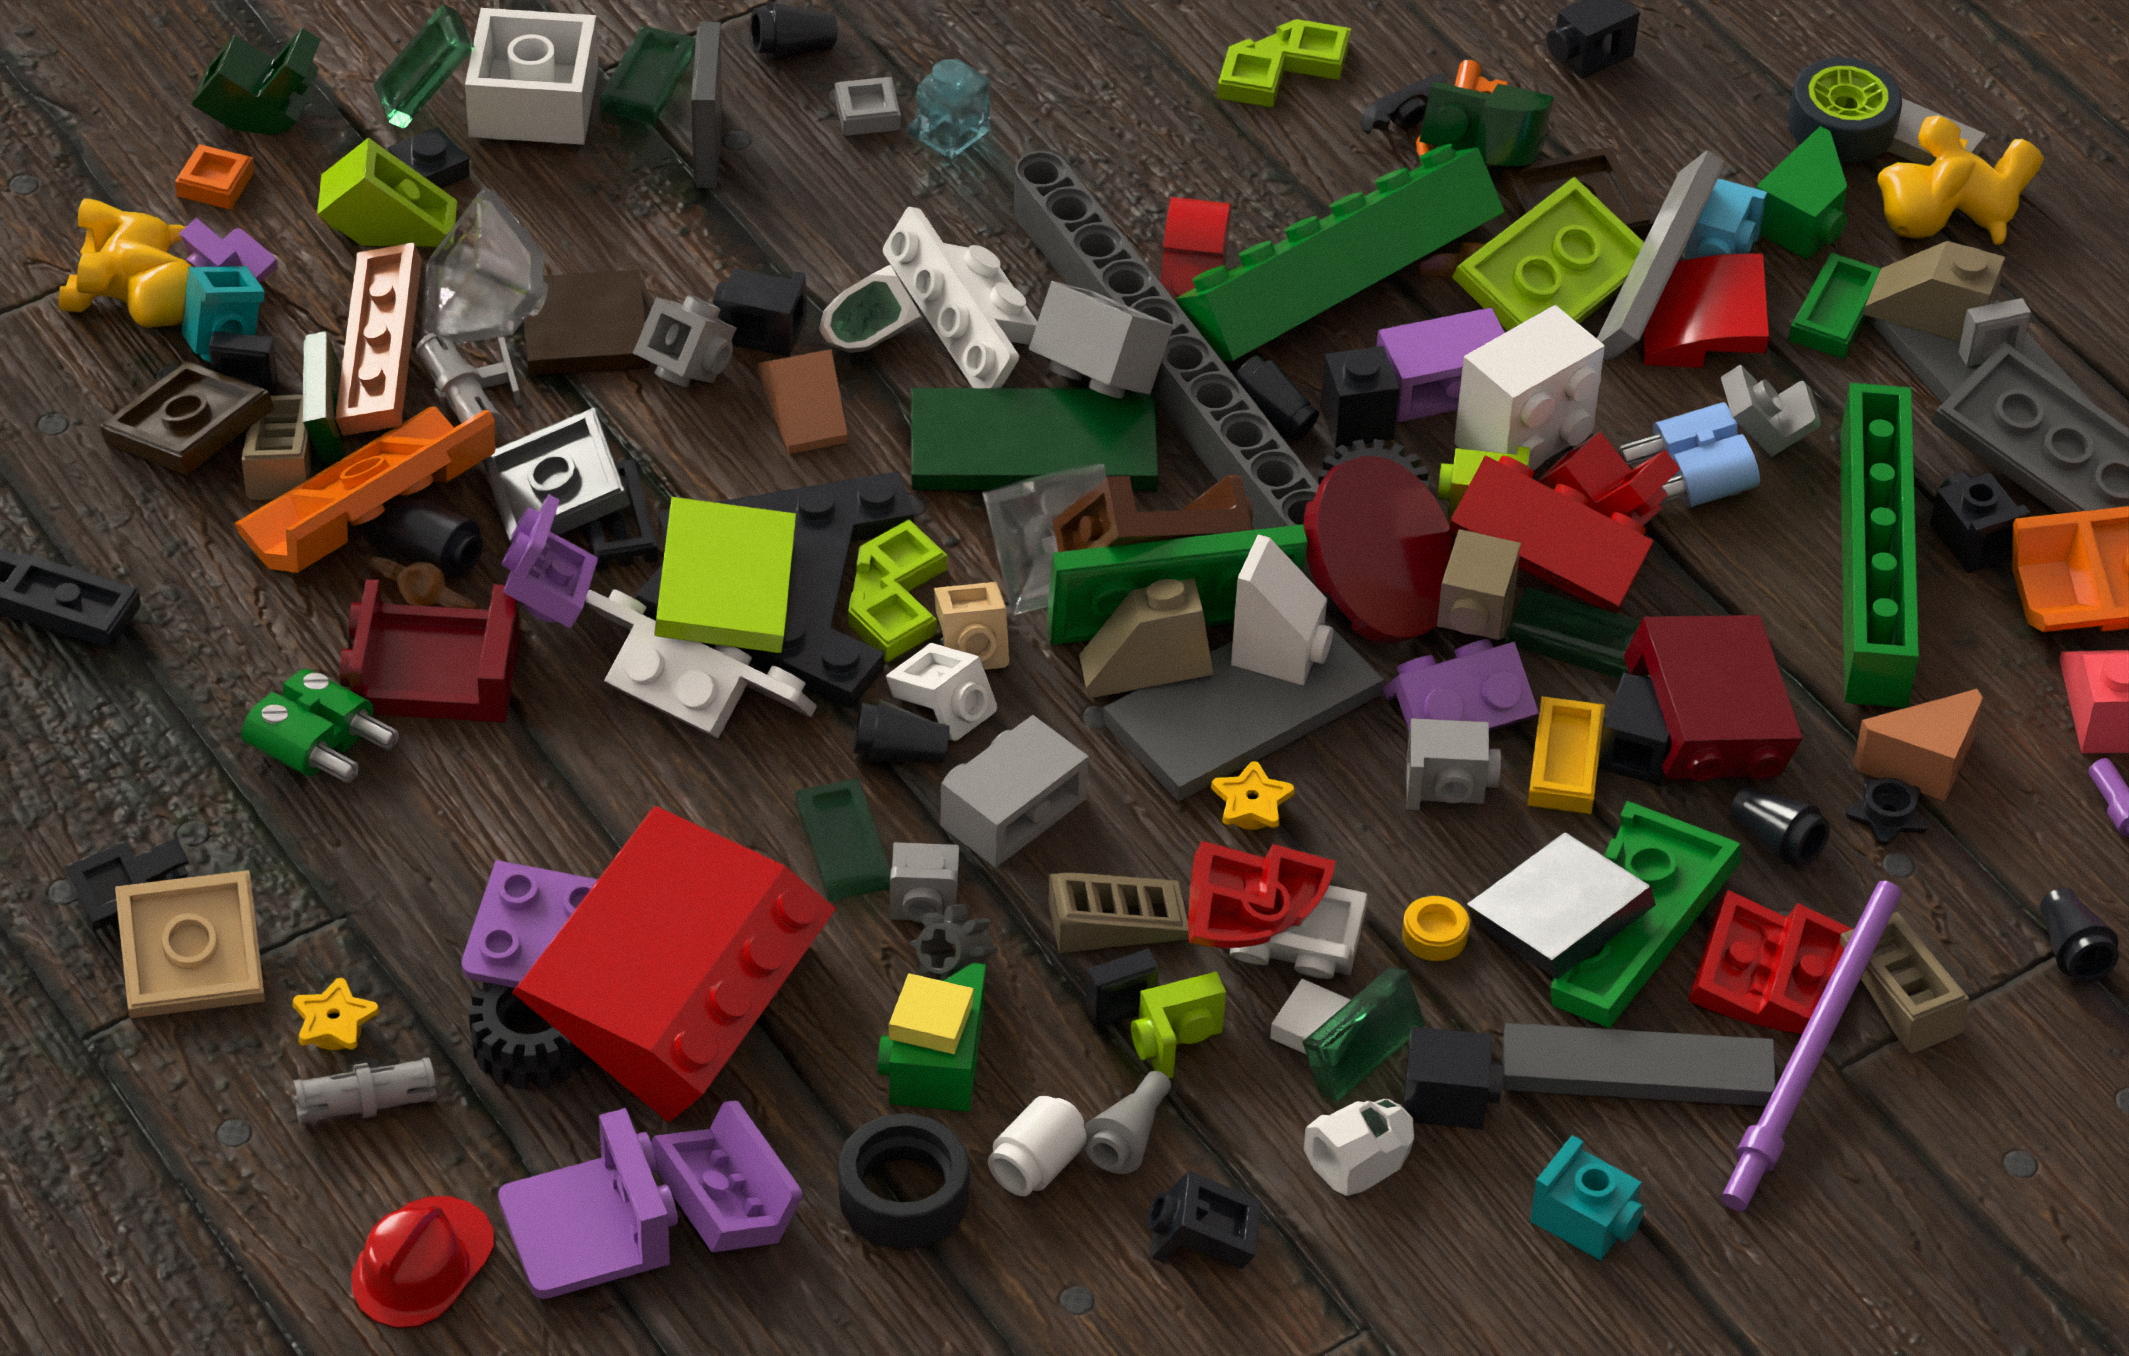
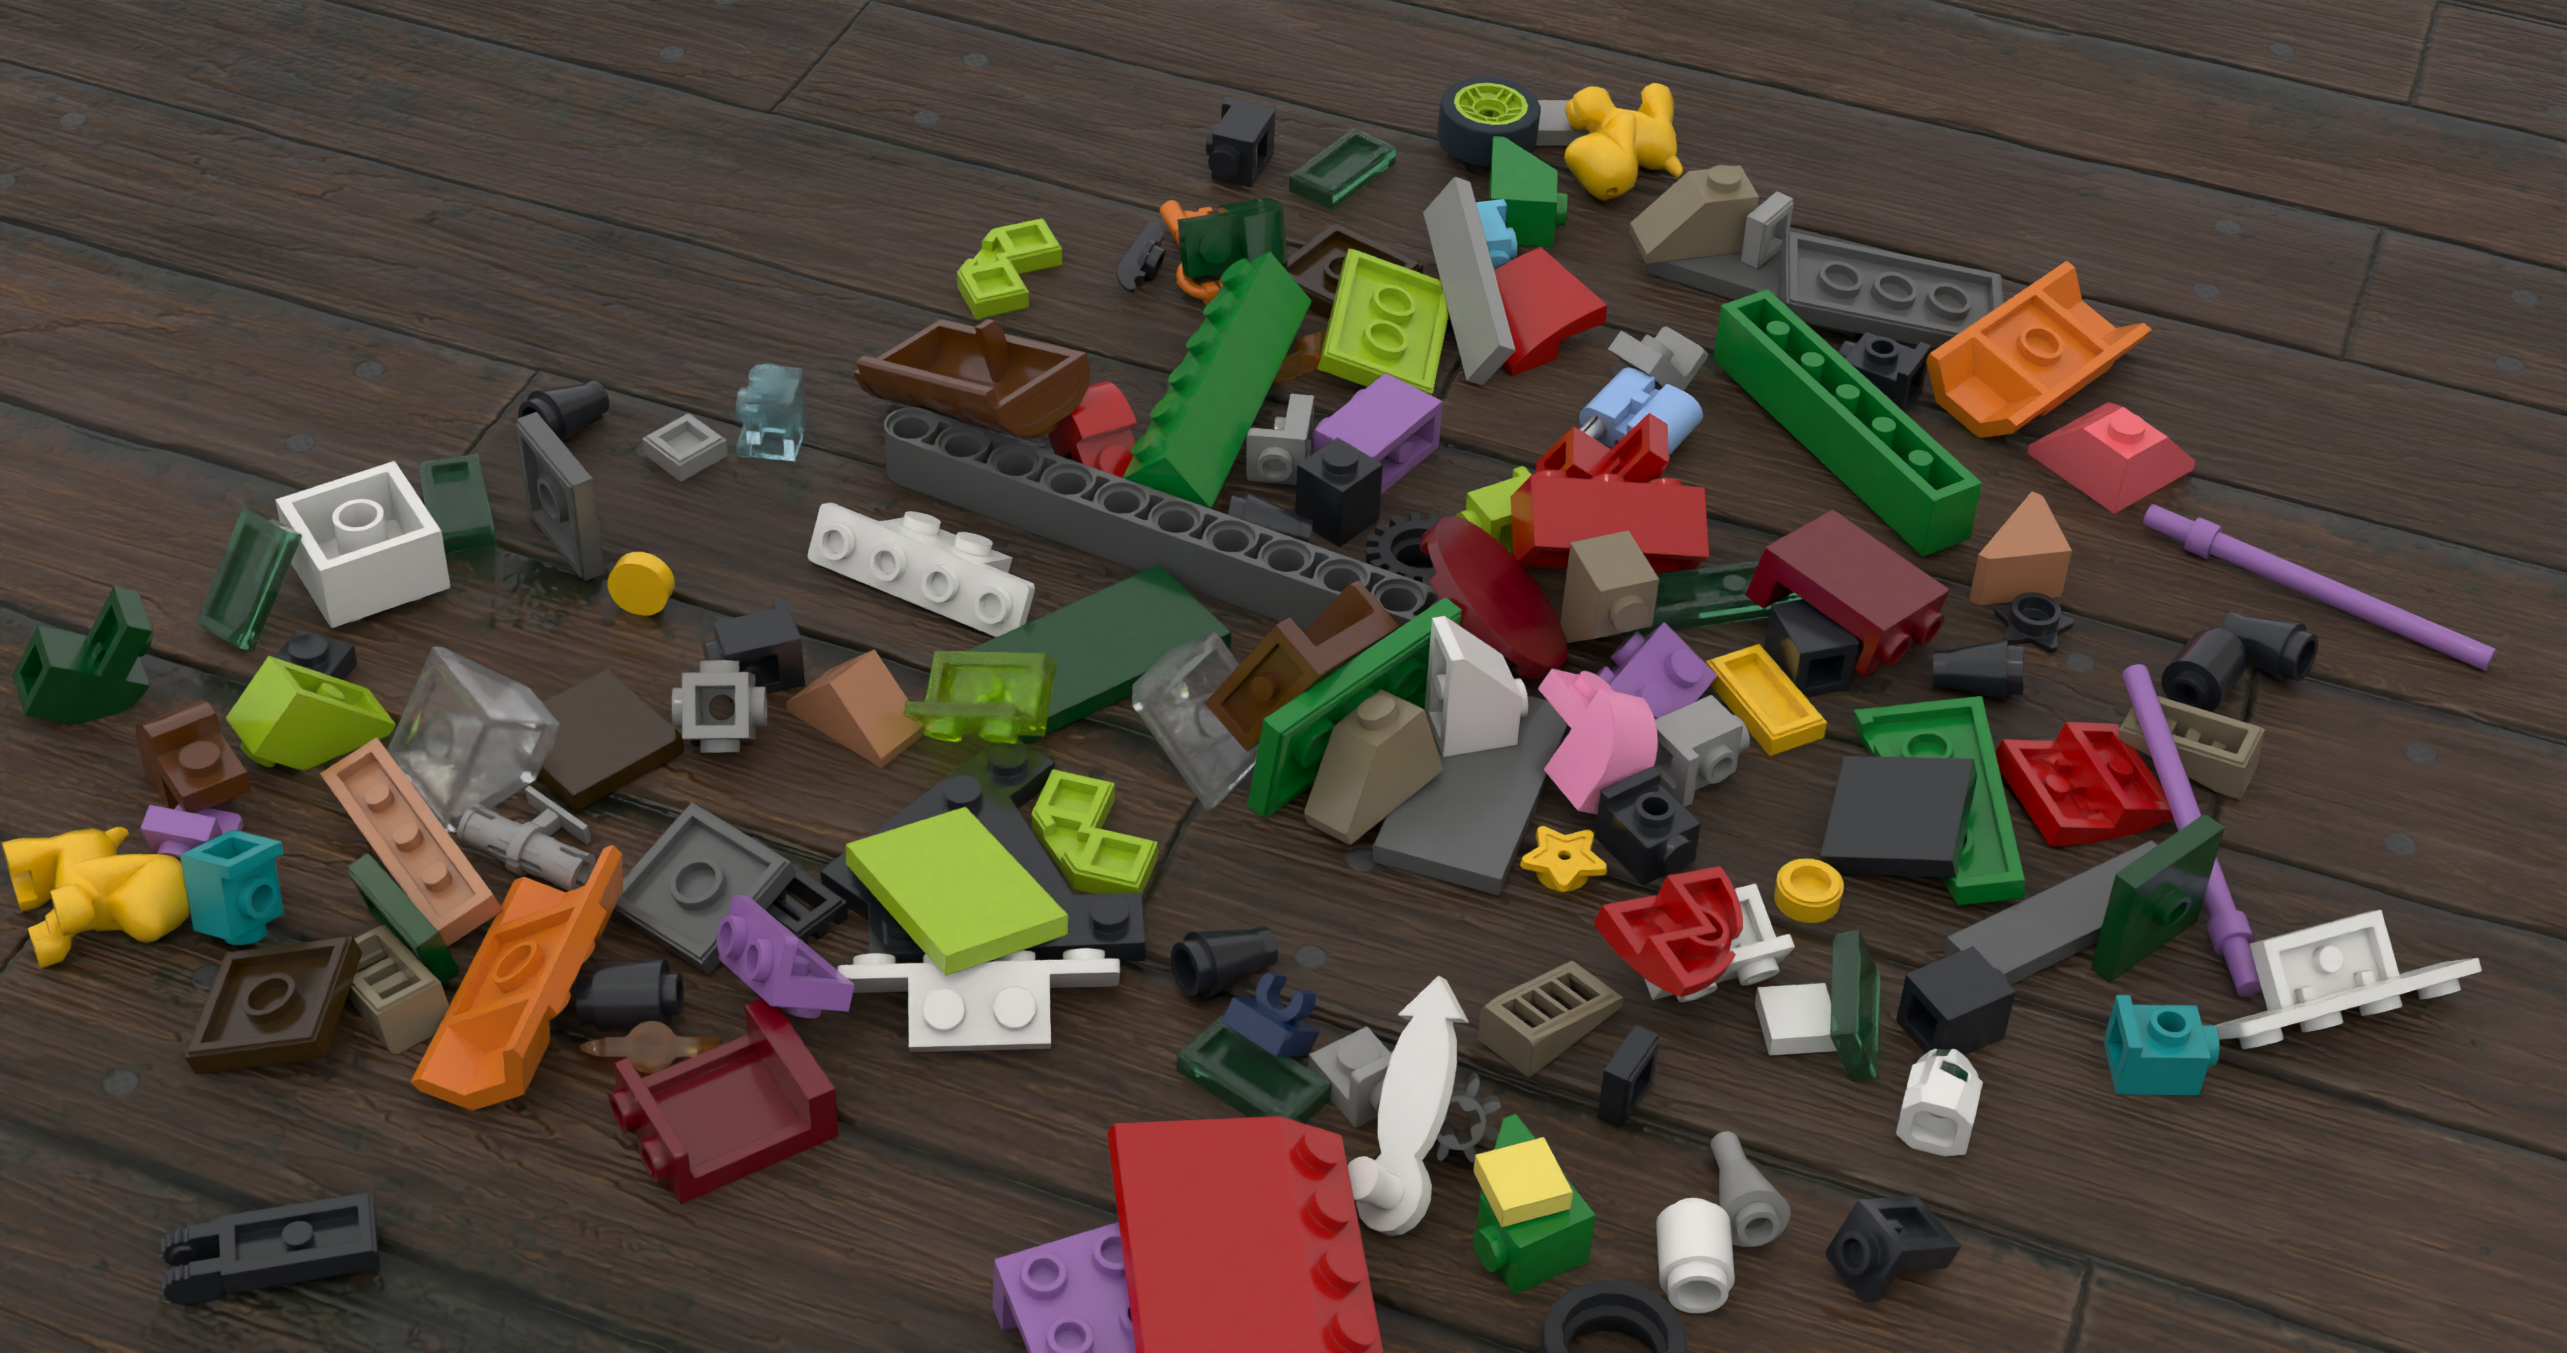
camera: 35 degrees left, 5 degrees down
(214, 176) = (100, 773): orange tile -> none
(245, 358) = (291, 918): black tile -> none
(268, 196) = (190, 759): none -> reddish brown brick
(311, 722) = (663, 1232): green piece -> none
(723, 209) = (641, 583): none -> yellow tile
(860, 973) = (1412, 1108): none -> white brick
(868, 313) = (860, 609): rock -> none
(884, 801) = (1270, 1023): none -> dark blue tile
(894, 432) = (986, 695): none -> clear neon green bracket
(949, 684) = (1220, 891): white bracket -> none
(974, 621) = (1199, 825): tan bracket -> none
(1013, 790) = (1369, 953): light grey brick -> none
(1100, 340) = (1094, 537): light grey brick -> none
(1125, 154) = (980, 377): none -> reddish brown container
(1176, 1015) = (1696, 1080): lime bracket -> none
(1339, 333) = (1275, 453): none -> light grey bracket
(1341, 805) = (1646, 827): none -> black brick
(1357, 718) = (1608, 738): none -> bright pink brick
(1531, 389) = (1483, 420): white brick -> none
(1677, 98) = (1342, 169): none -> clear green tile
(1695, 1080) = (2156, 897): none -> dark green plate
(1806, 1221) = (2331, 969): none -> white bracket
(1835, 306) = (1614, 267): green tile -> none
(1985, 925) = (2205, 669): none -> black brick

